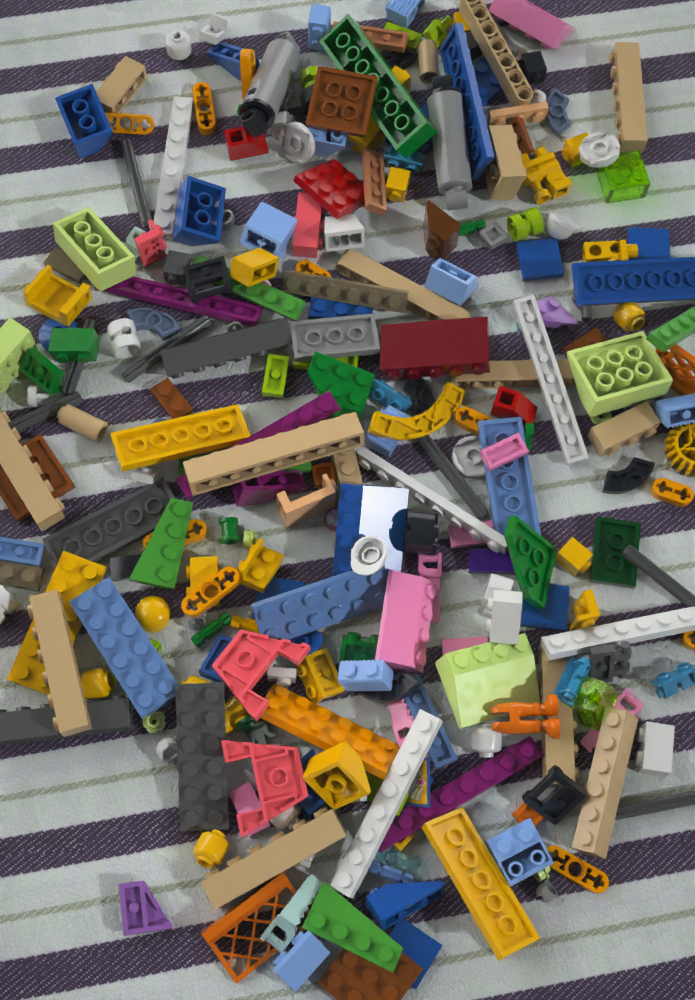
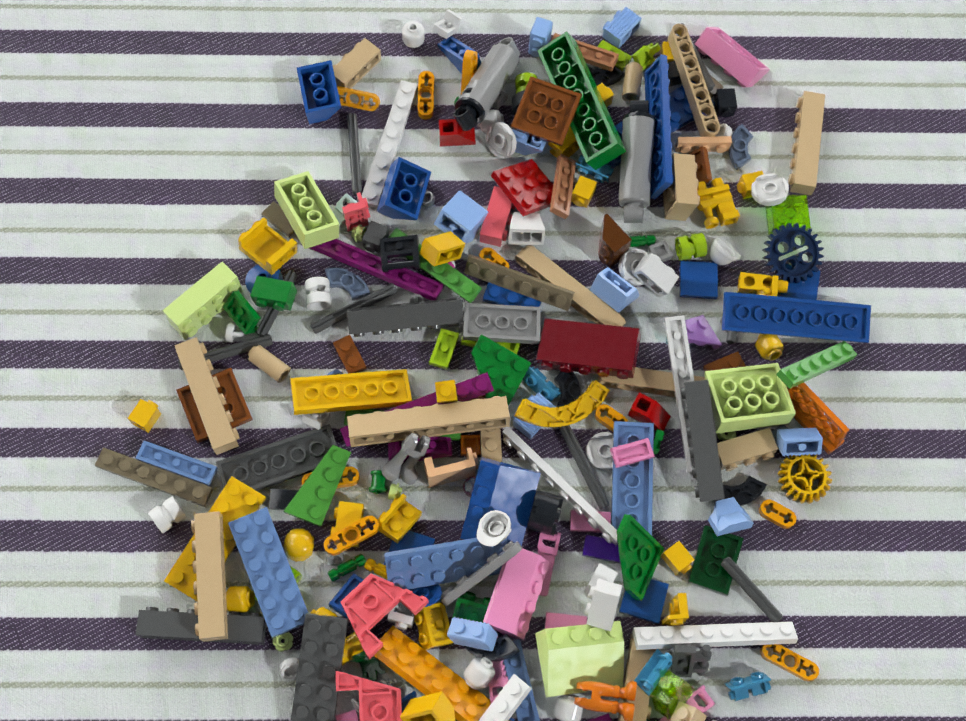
camera: 10 degrees right, 0 degrees up
(156, 267) = (358, 233): none -> yellowish green plate
(258, 513) = (406, 470): none -> light grey piece
(288, 417) = (446, 391): none -> yellow brick
(375, 592) = (494, 563): none -> light grey piece
(380, 717) = (479, 673): none -> white head
(470, 254) = (628, 263): none -> white tile
(492, 259) = (655, 274): none -> white brick
(579, 424) = (704, 441): none -> dark grey brick
(621, 504) = (729, 517): none -> light blue slope
(647, 229) = (786, 237): none -> dark blue gear

